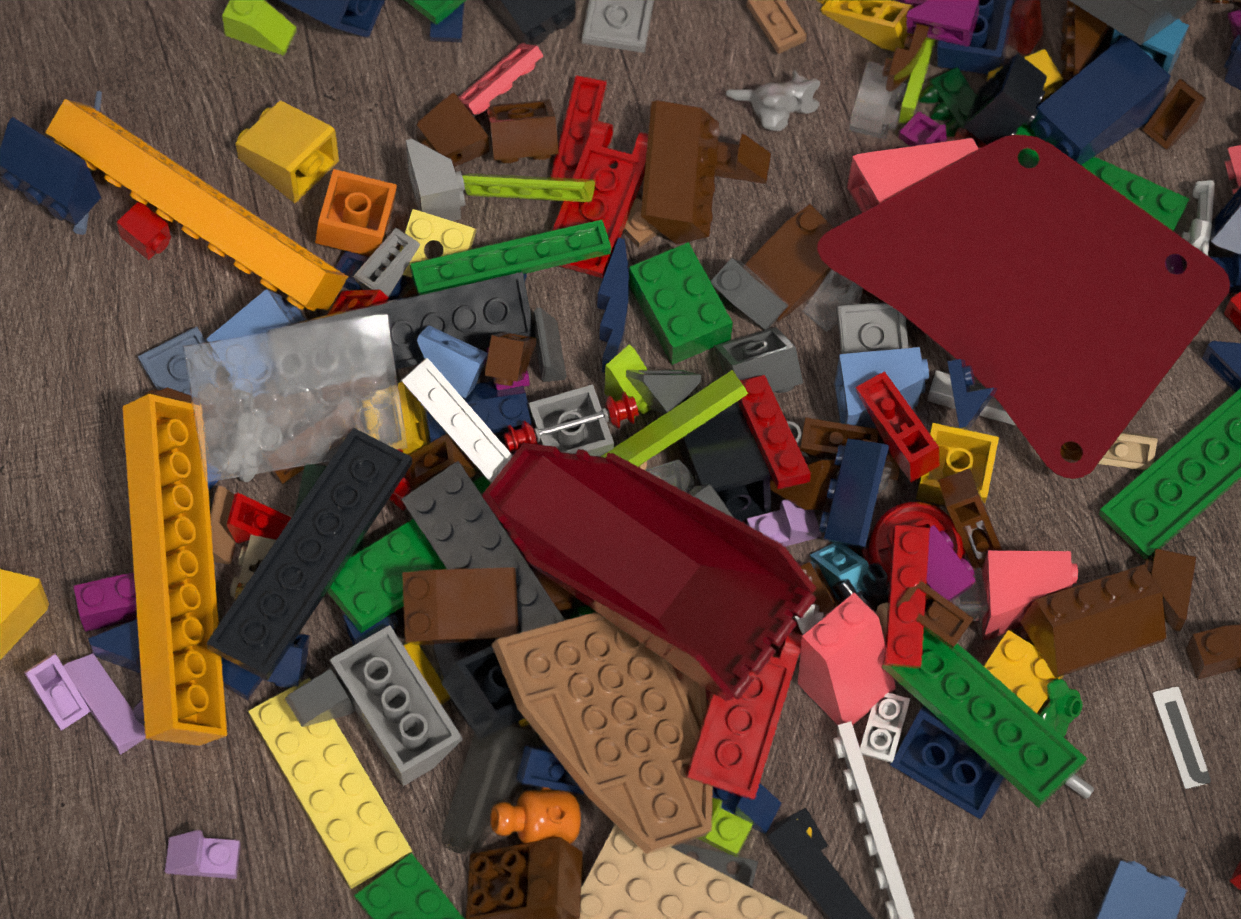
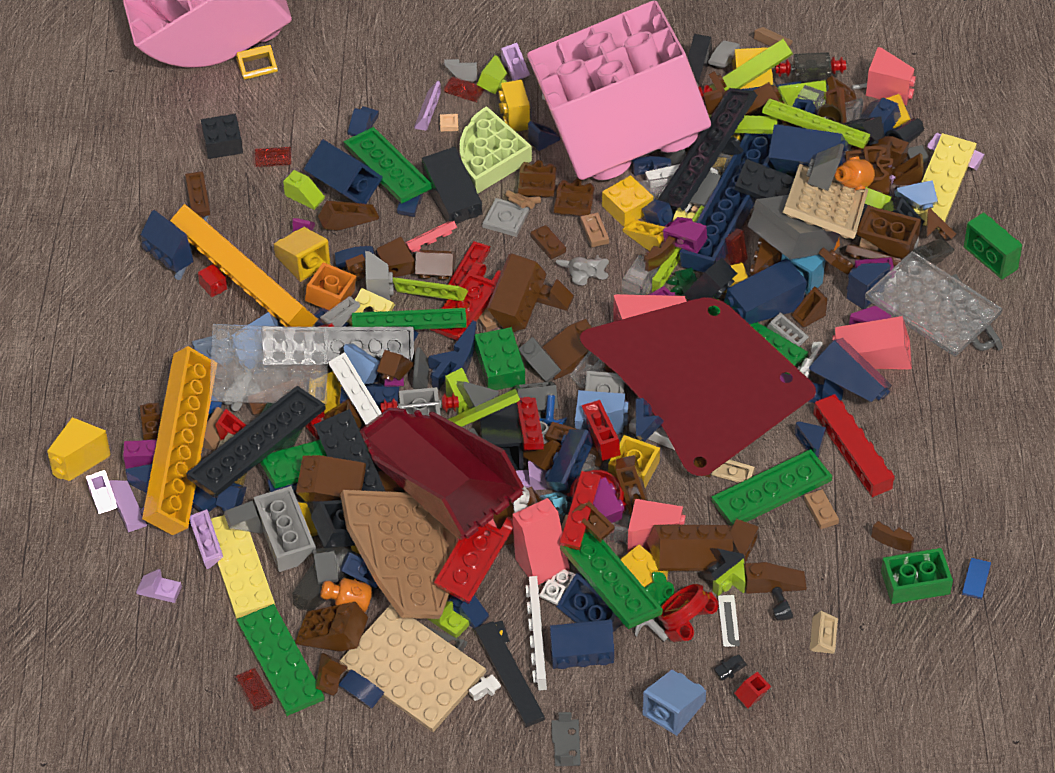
camera: 15 degrees right, 15 degrees down
(74, 60) = (197, 193): none -> reddish brown plate
(106, 528) = (150, 420): none -> reddish brown slope
(263, 746) = (206, 538): none -> lavender slope
(272, 91) = (300, 223): none -> magenta slope
(343, 61) = (344, 215): none -> reddish brown slope
(379, 139) = (343, 255): none -> dark blue slope
(393, 167) = (357, 266): none -> reddish brown plate
(487, 769) = (325, 565): none -> dark grey slope
(585, 332) = (441, 367): none -> dark blue slope
(702, 55) = (548, 242): none -> reddish brown plate
(792, 408) = (550, 412): none -> blue plant
(958, 841) = (582, 644): none -> dark blue slope
(1112, 769) = (682, 608): none -> red piece
(1140, 150) = (786, 324): none -> light grey slope
(1158, 639) = (724, 562): none -> black slope
(1176, 655) = (734, 577): none -> lime slope
(1201, 837) = (728, 669): none -> black piece
(1206, 23) = (837, 260): none -> reddish brown plate

